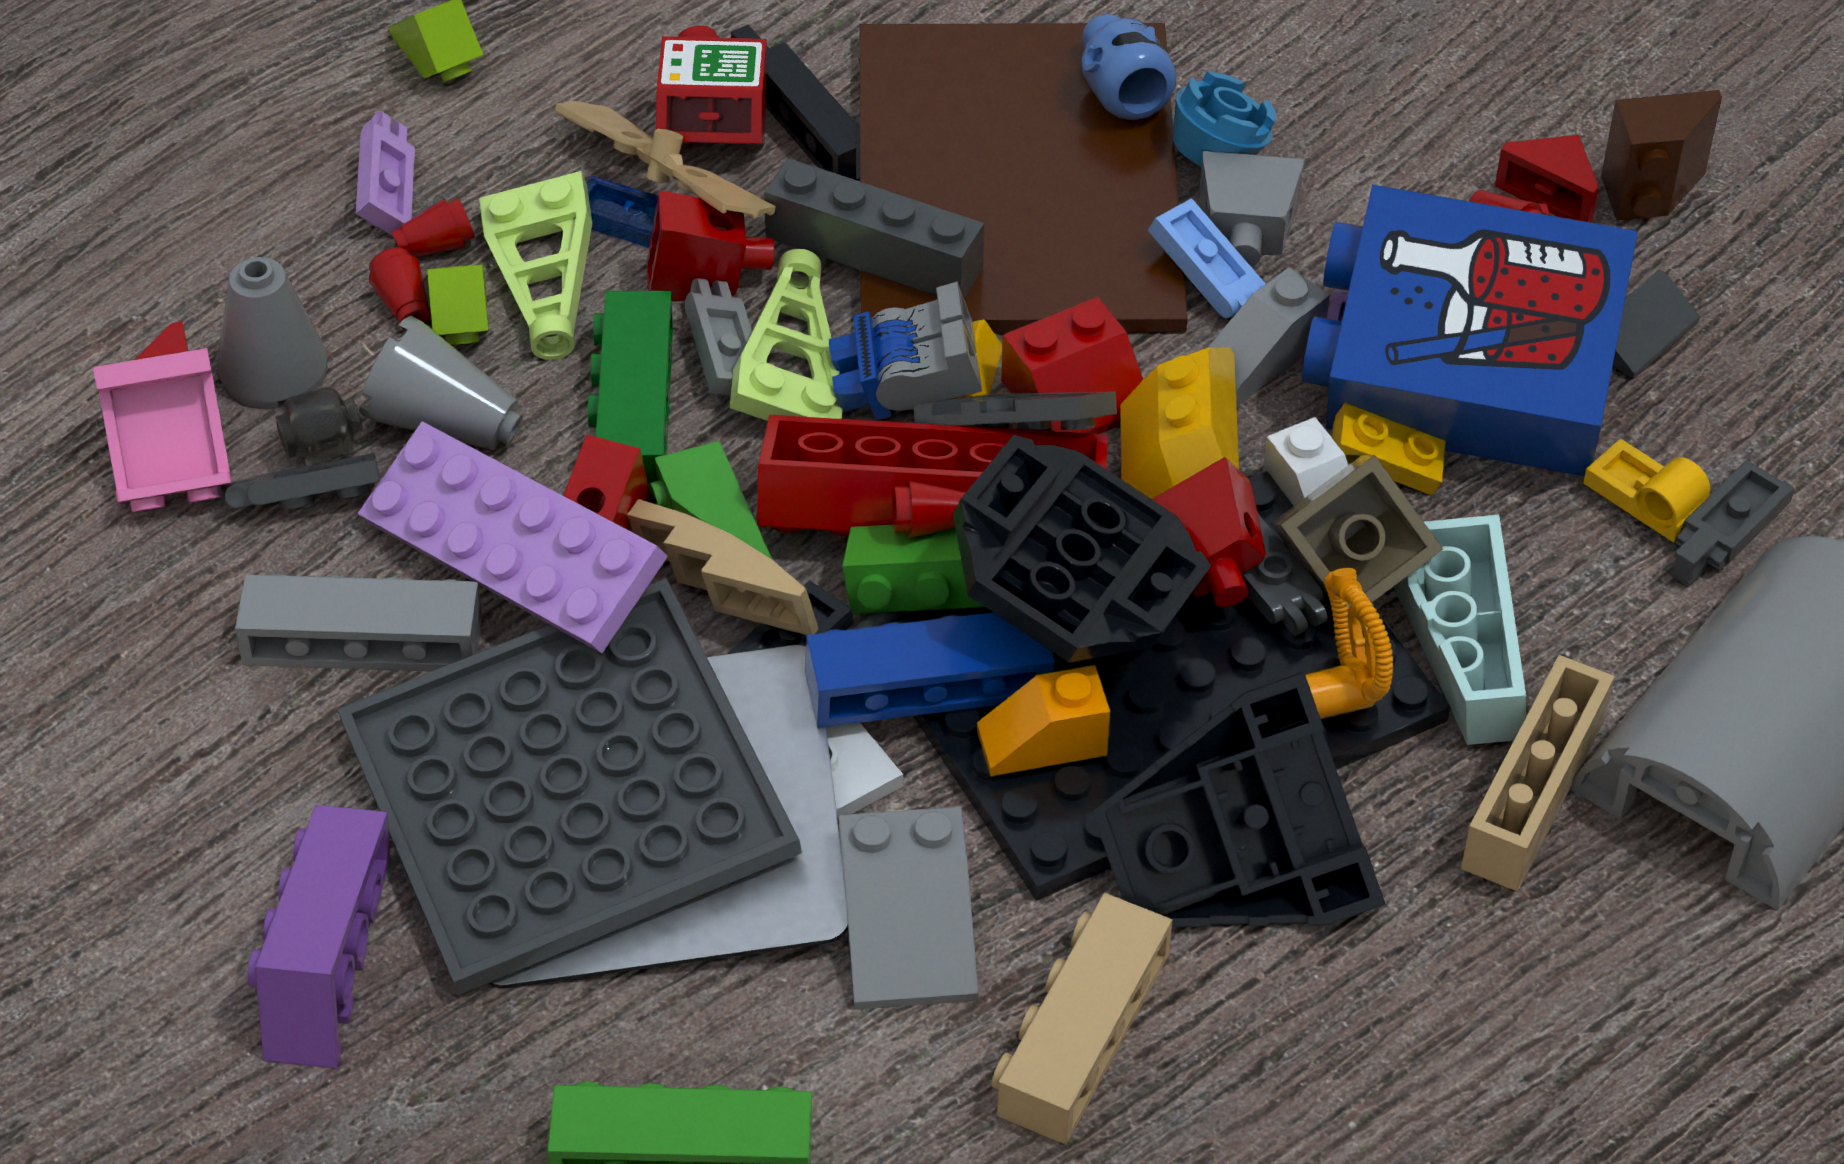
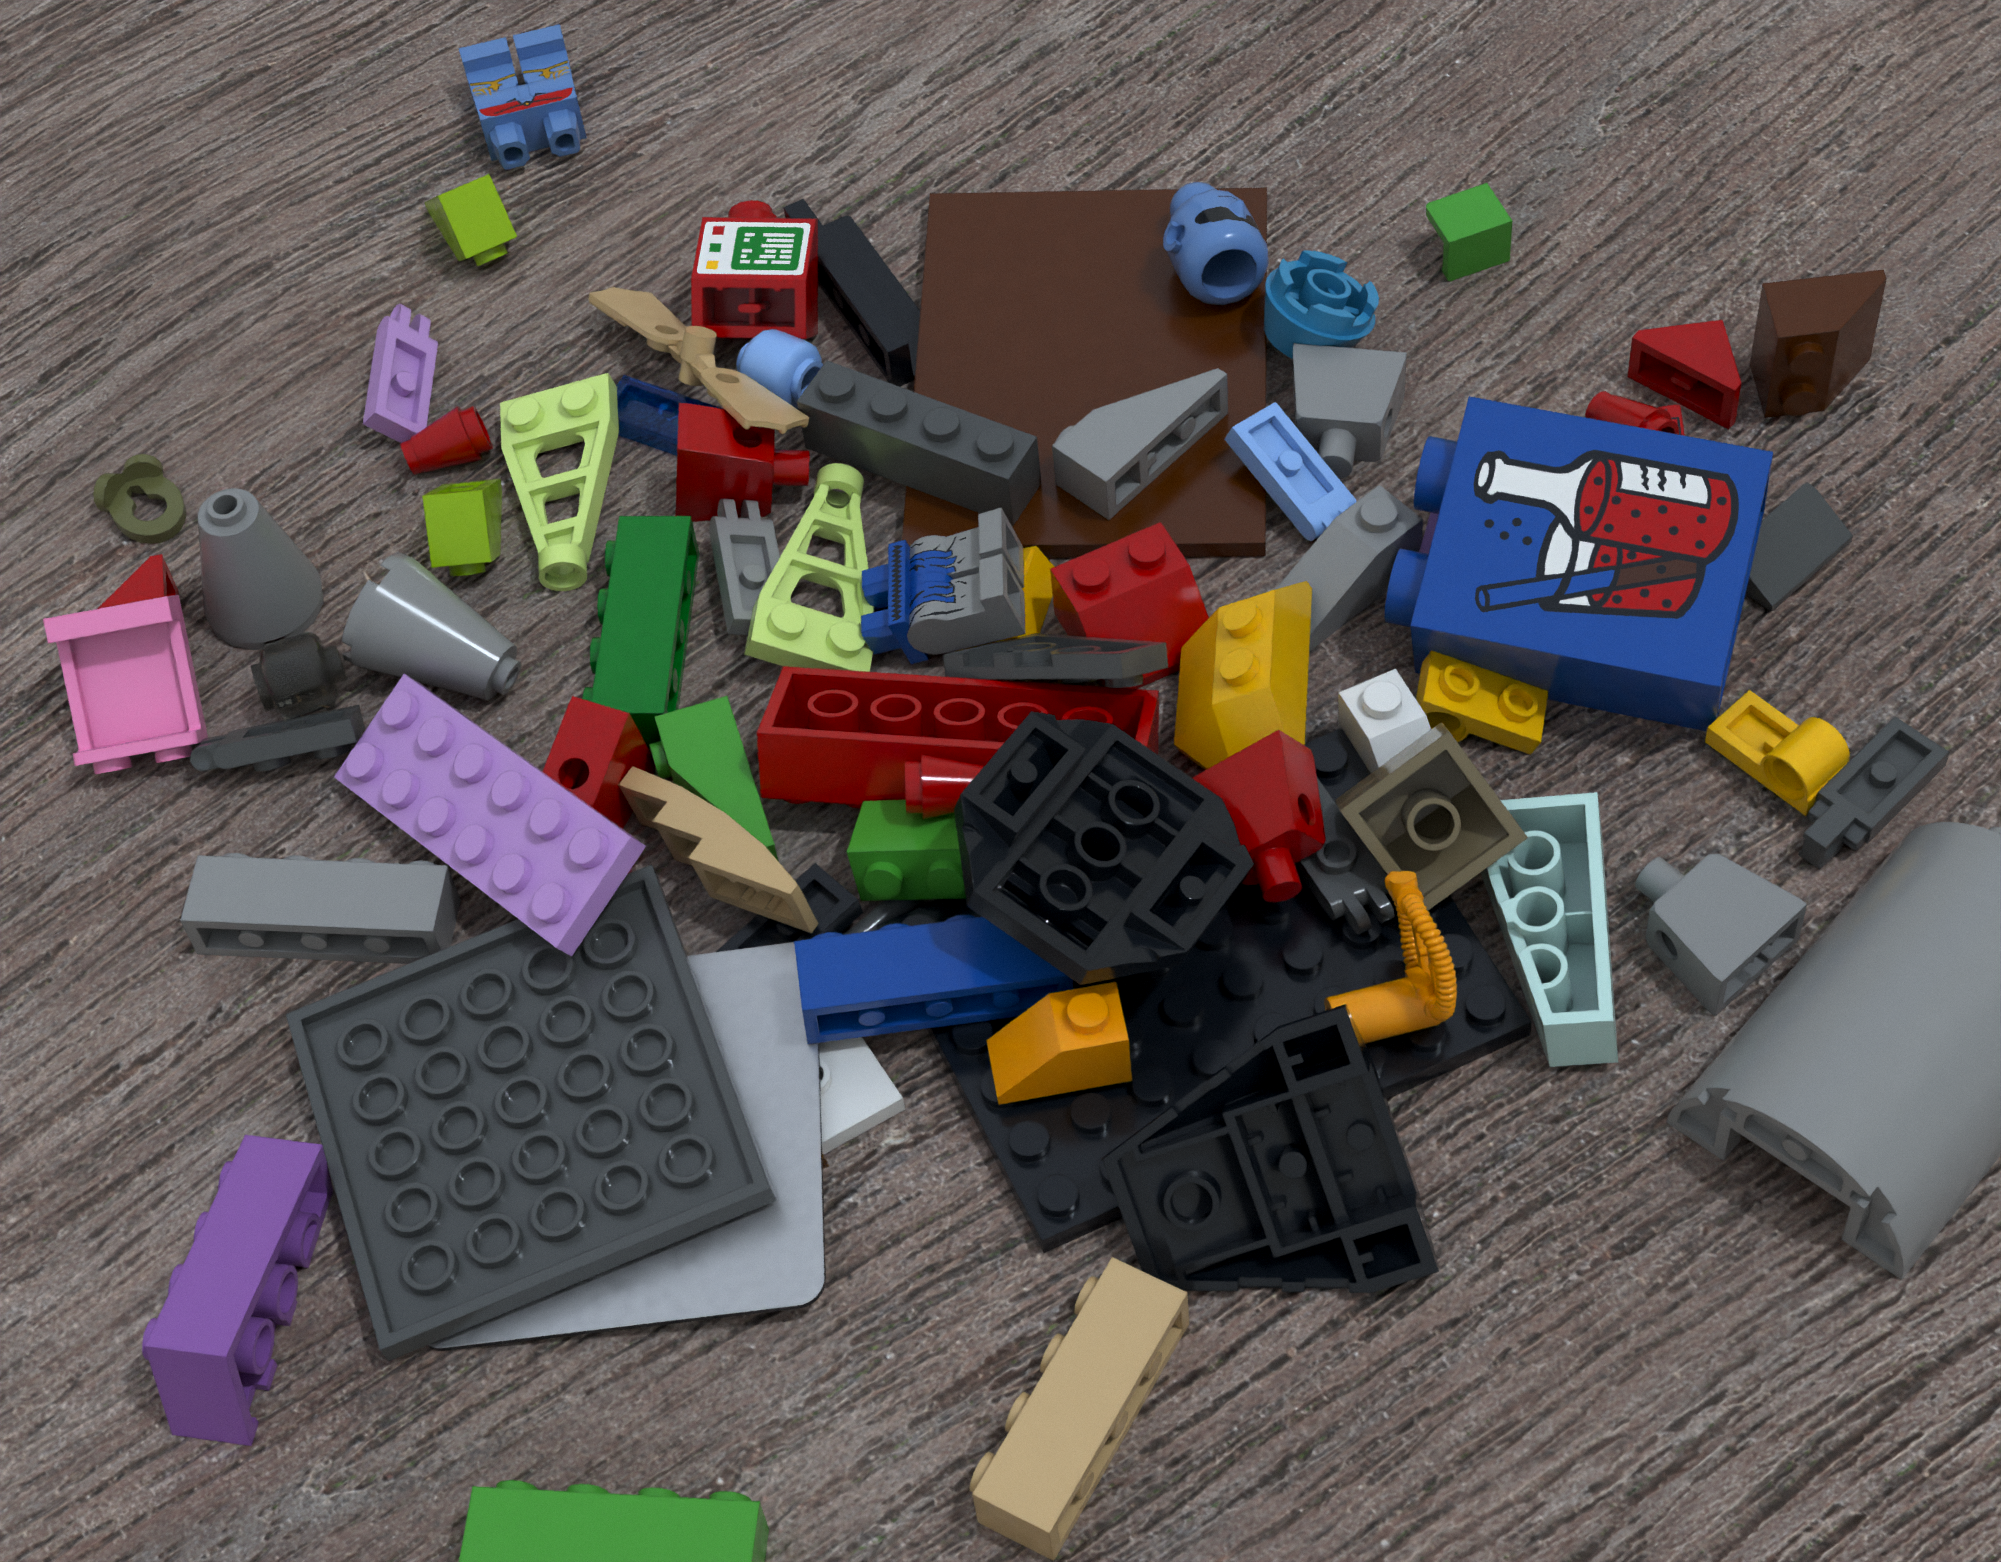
camera: 10 degrees right, 5 degrees up
(148, 259) = (142, 476): none -> olive piece
(400, 284) = (400, 504): red cone -> none
(741, 163) = (780, 363): none -> light blue head
(908, 908) = (892, 1267): light grey slope -> none
(1067, 230) = (1134, 440): none -> light grey slope
(1354, 60) = (1473, 231): none -> bright green panel
(1537, 773) = (1625, 1110): tan brick -> none
(1607, 623) = (1717, 925): none -> light grey torso

